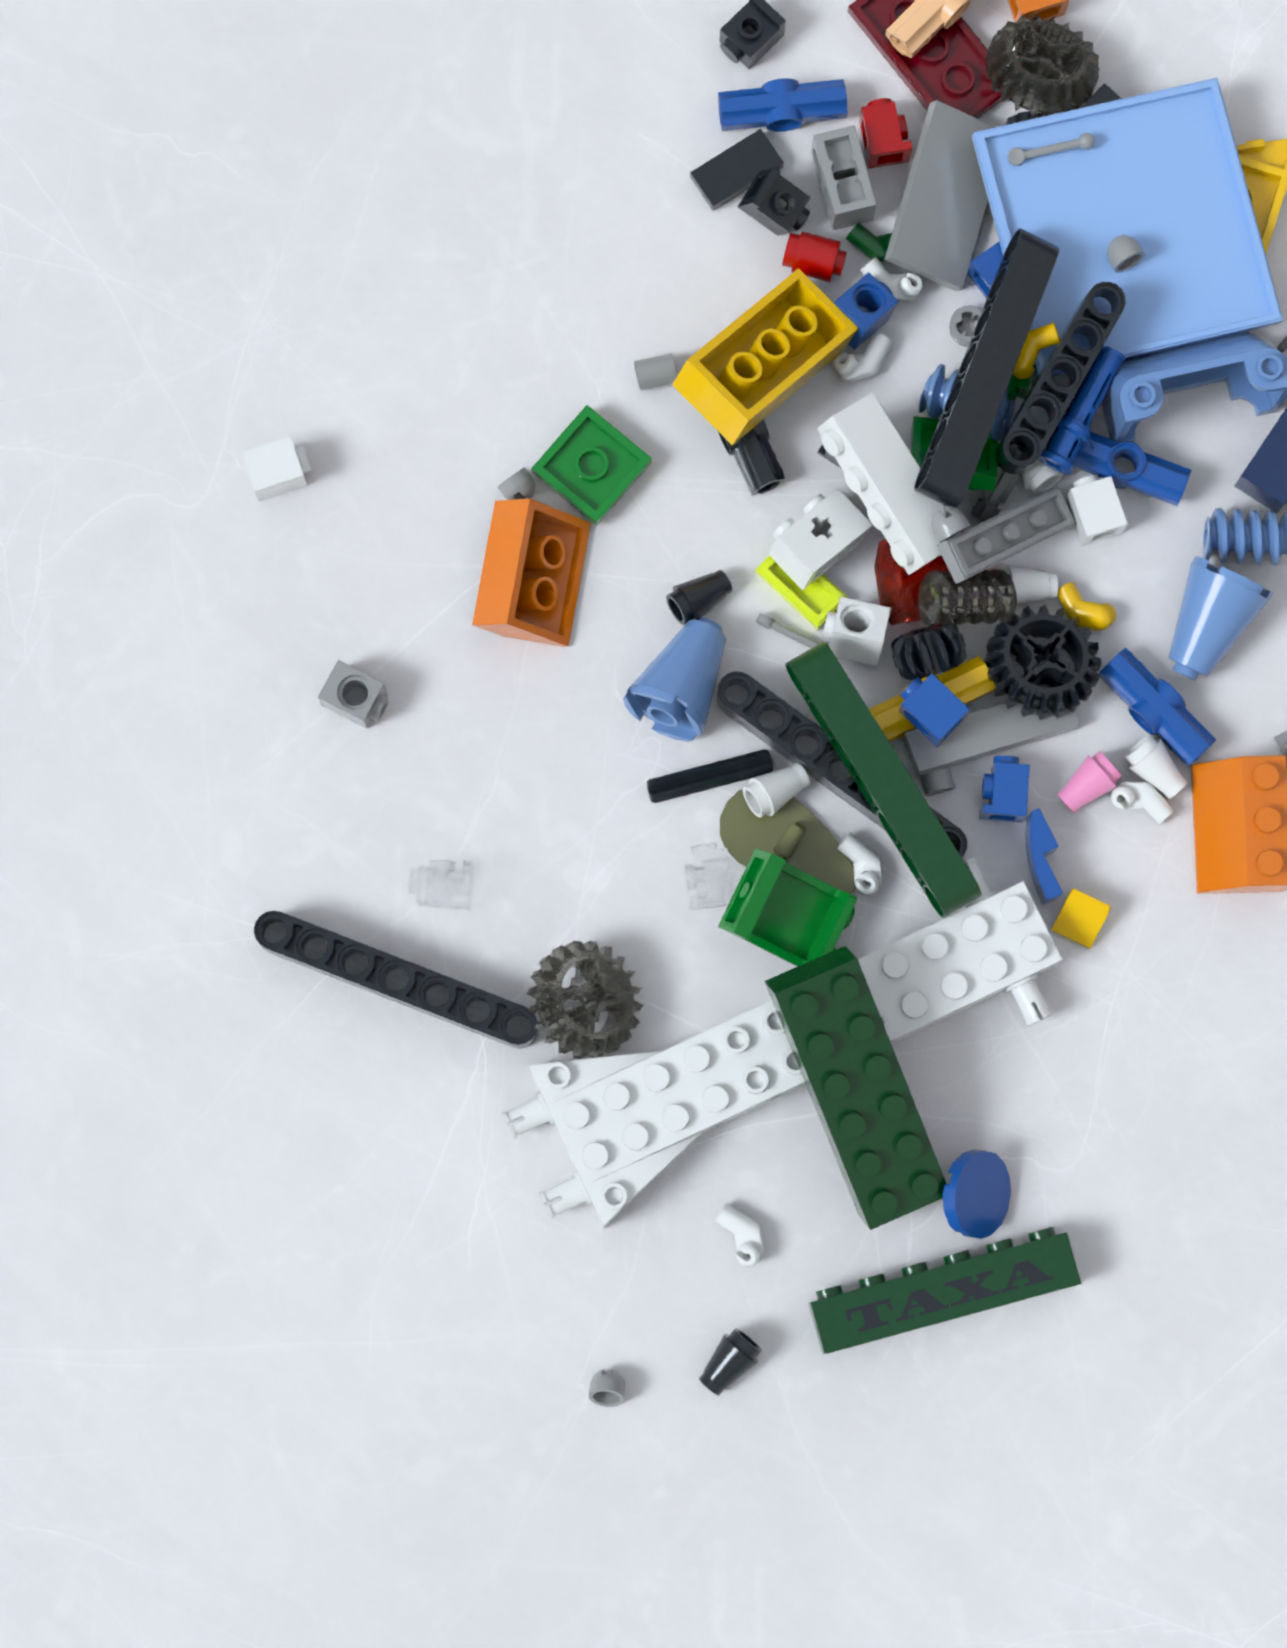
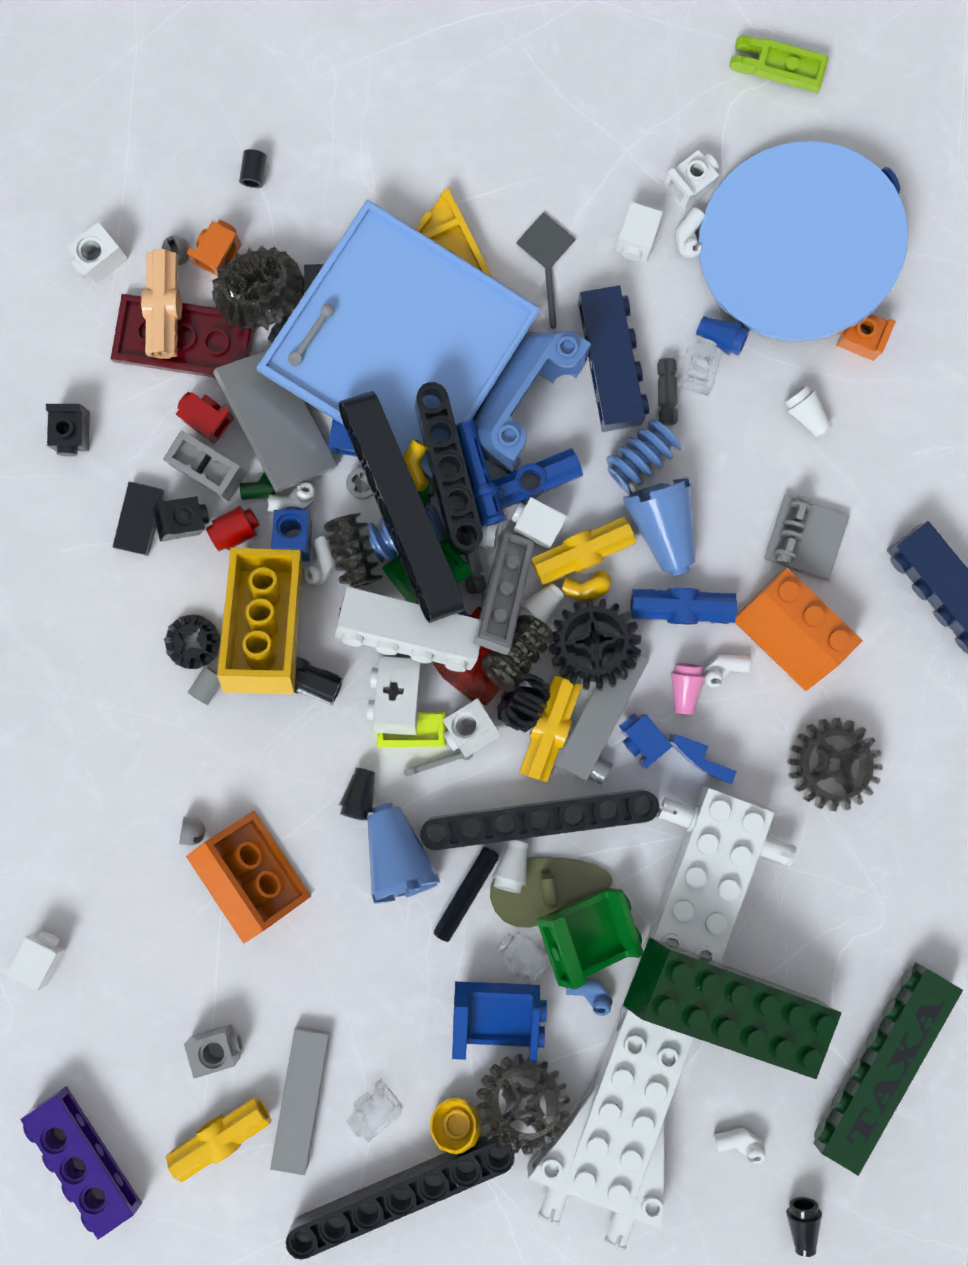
camera: 45 degrees left, 5 degrees up
(143, 746) = (84, 1143): none -> dark purple brick
(282, 775) = (218, 1139): none -> yellow piece
(385, 814) = (300, 1100): none -> light grey tile
(505, 965) = (455, 1125): none -> yellow hair
(591, 465) = (222, 778): green plate -> none
(635, 903) = (498, 1016): none -> blue panel
(667, 336) = (207, 637): none -> black gear
(740, 970) = (595, 994): none -> medium blue arm
(782, 105) = (127, 455): blue piece -> none
(866, 864) = (605, 858): white arm -> none
(883, 780) = (572, 809): dark green beam -> none
(902, 370) = (351, 551): none -> clear smoke piece
(932, 709) = (560, 738): blue brick -> none
(951, 525) = (471, 623): light grey hinge -> none
(977, 1194) = (854, 994): blue tile -> none
(1081, 918) = (755, 770): yellow slope -> none
(1112, 572) = (583, 551): none -> yellow piece
(1124, 253) = (413, 356): light grey hinge -> none
(1138, 975) = (843, 776): none -> clear smoke gear
(1156, 766) = (714, 641): white cone -> none

